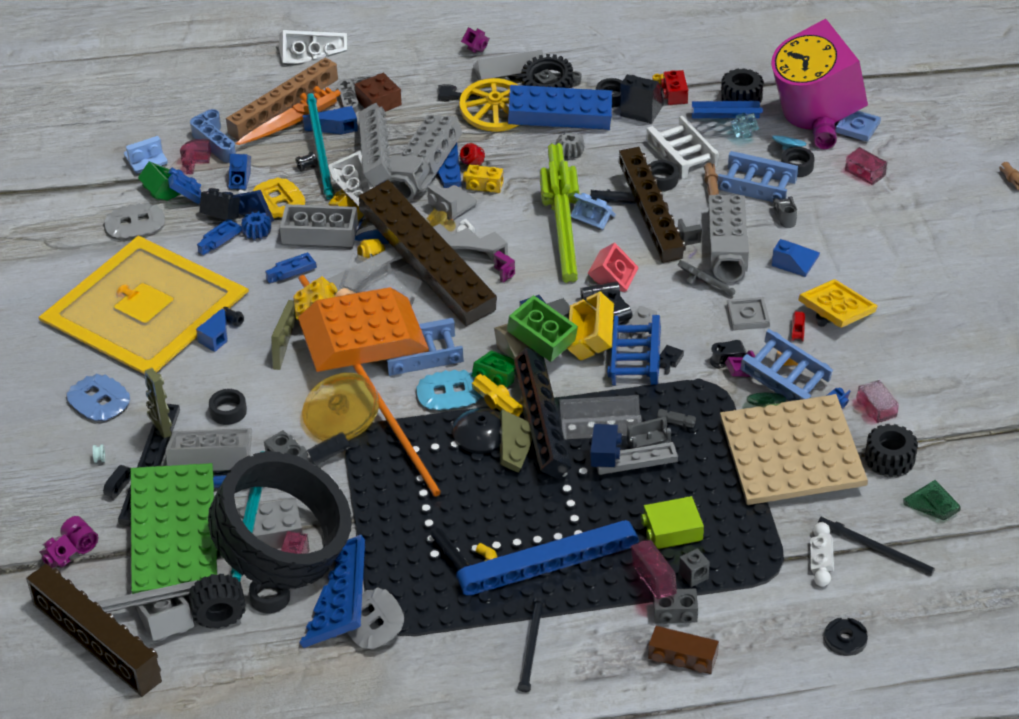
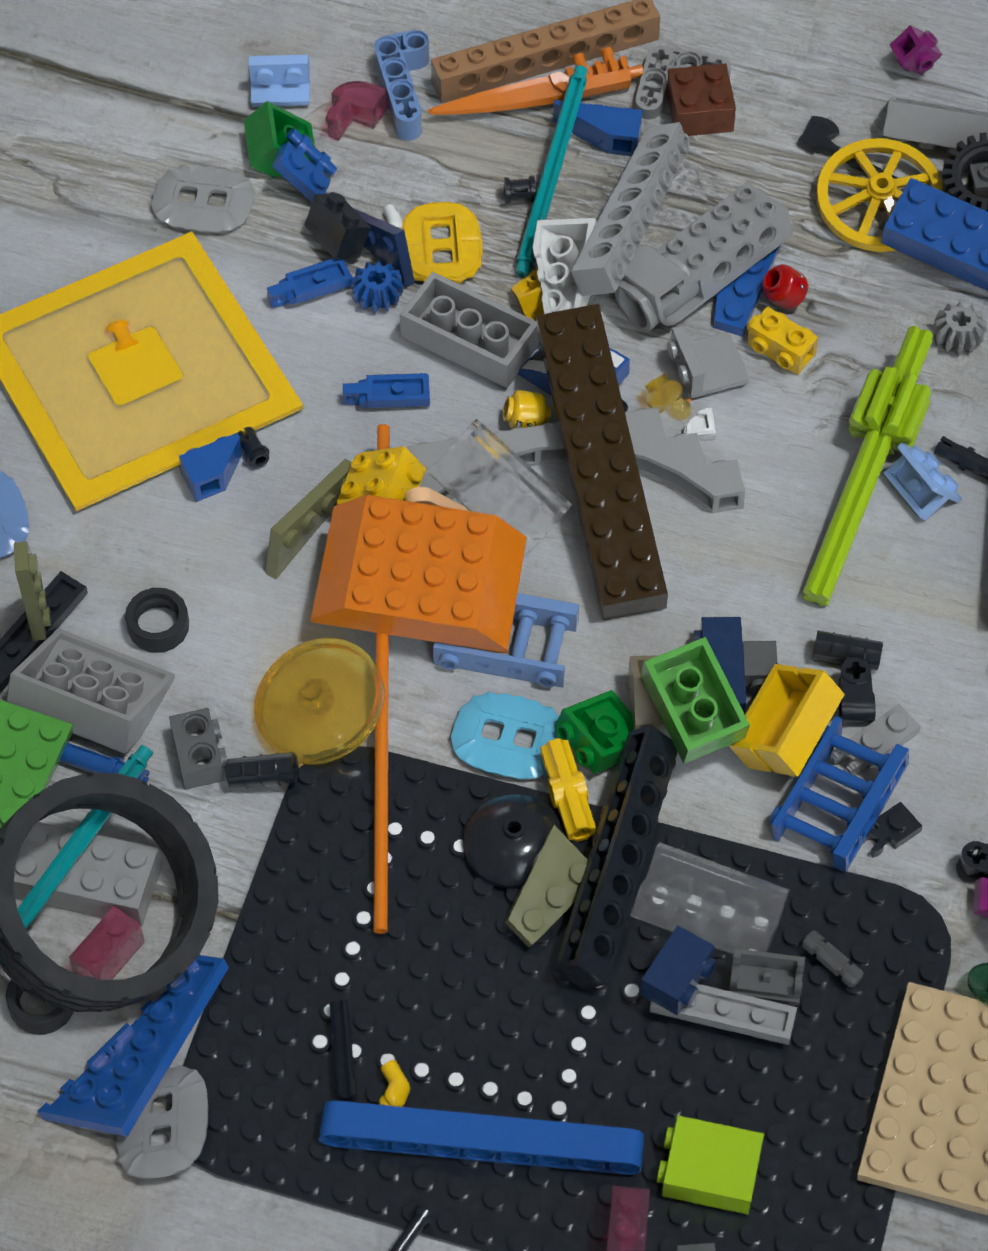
camera: 25 degrees right, 15 degrees up
(239, 171) = (405, 168): blue slope -> none
(505, 265) = (725, 531): magenta bracket -> none
(613, 266) = (894, 612): coral slope -> none

